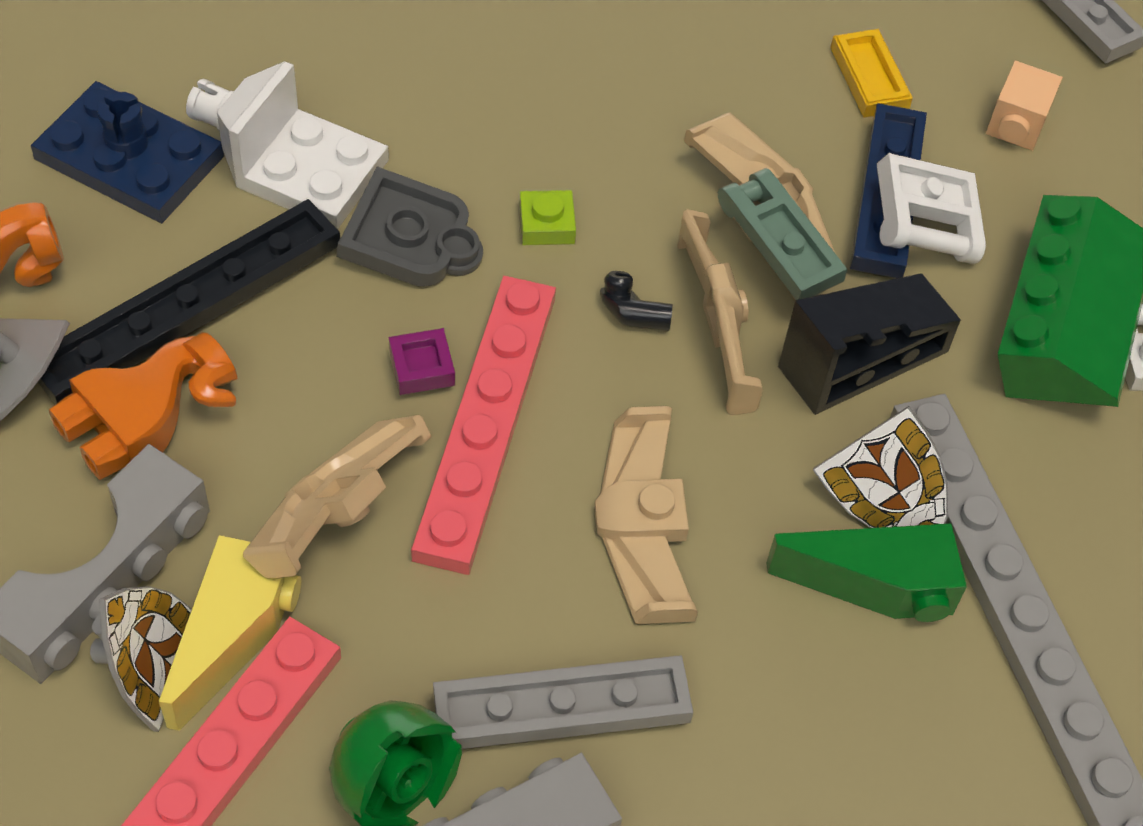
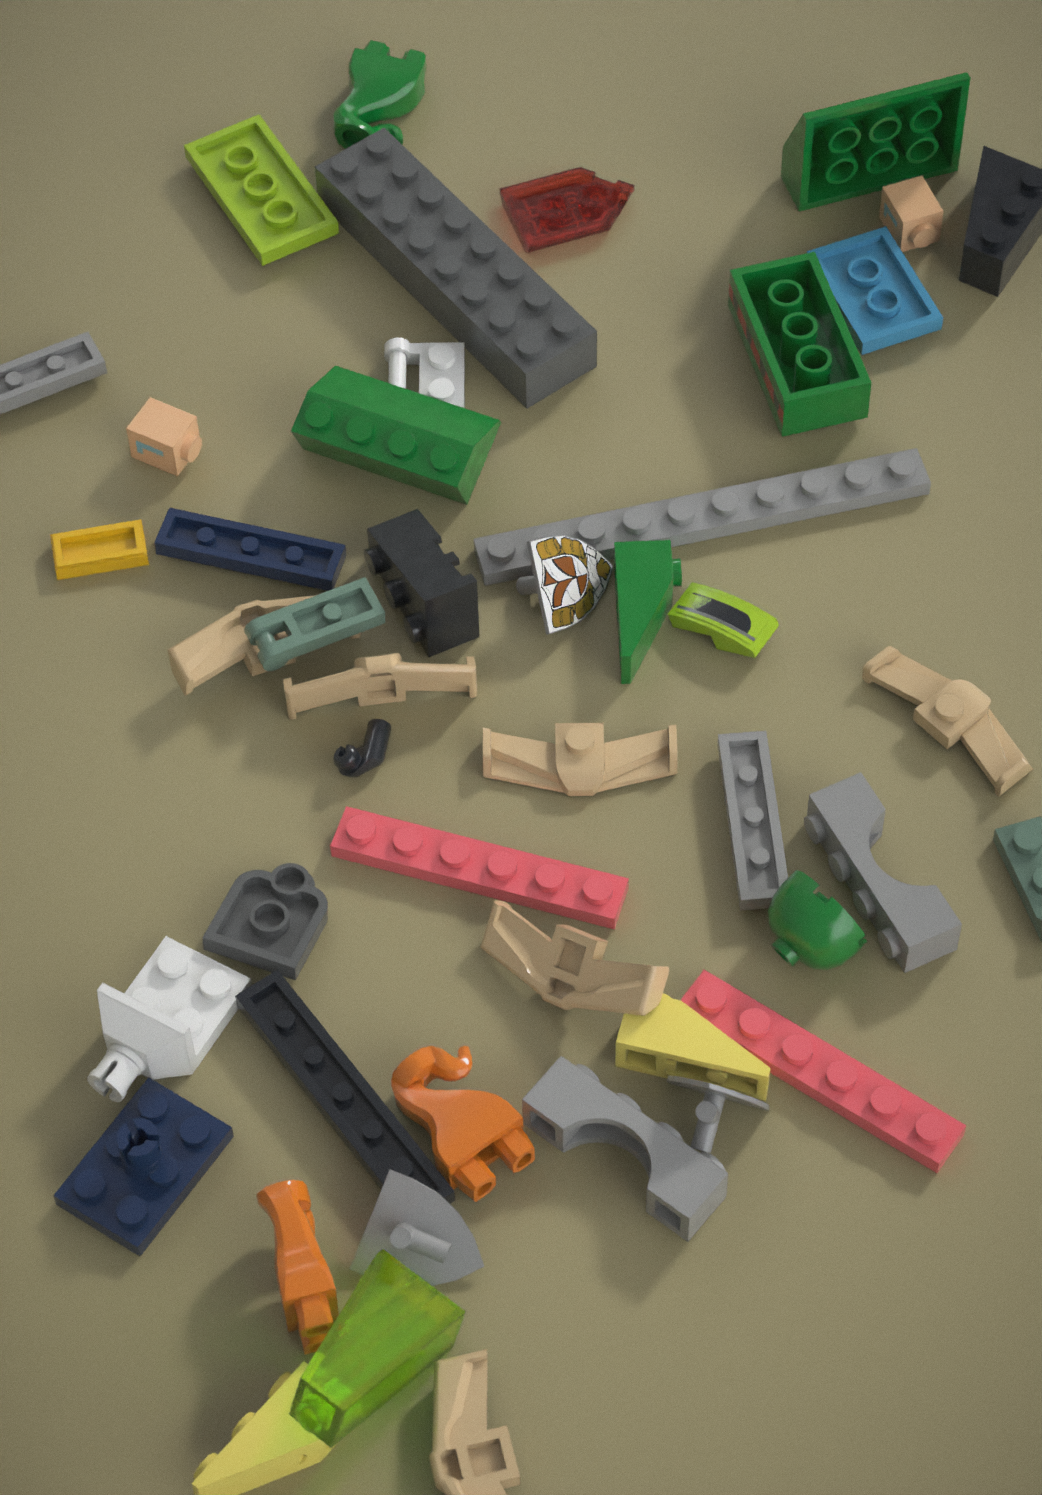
camera: 80 degrees left, 0 degrees up
(421, 361) = (422, 910): magenta plate -> none
(547, 217) = (257, 814): lime plate -> none
(869, 668) = (730, 621): none -> lime slope
(935, 194) = (275, 516): white plate -> none

